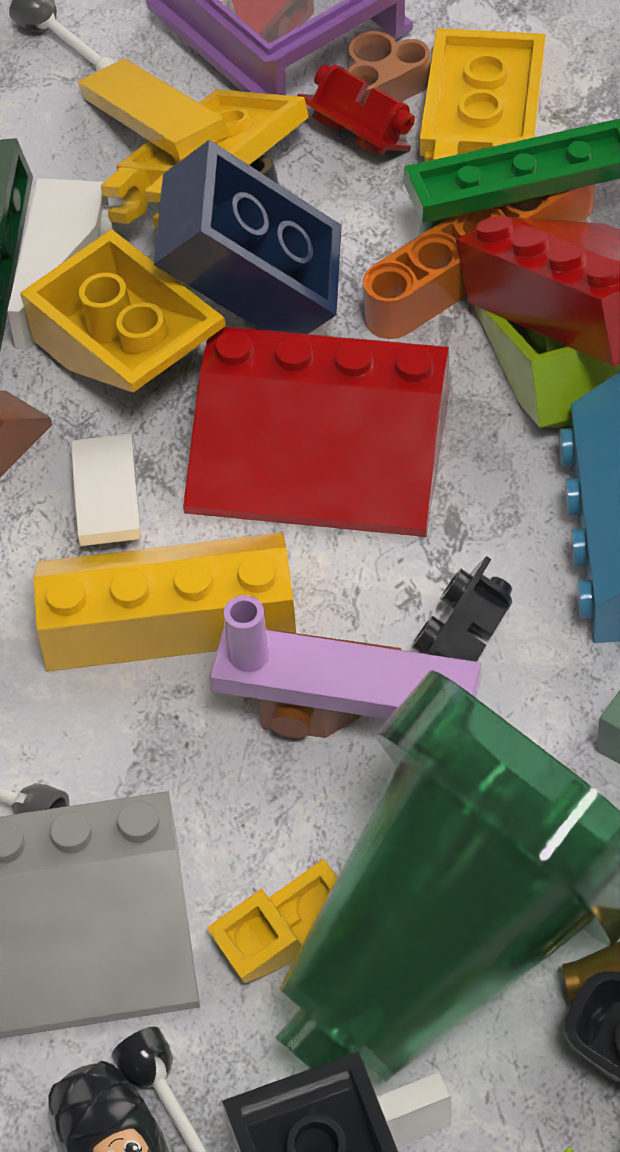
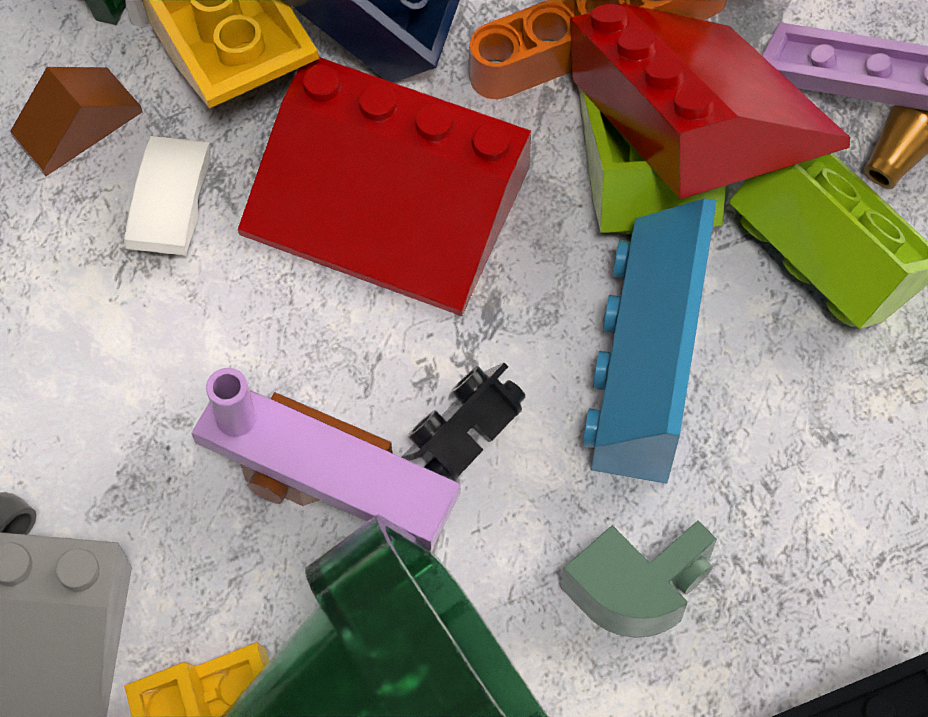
camera: 10 degrees right, 10 degrees up
(156, 599) = (185, 322): yellow slope -> none

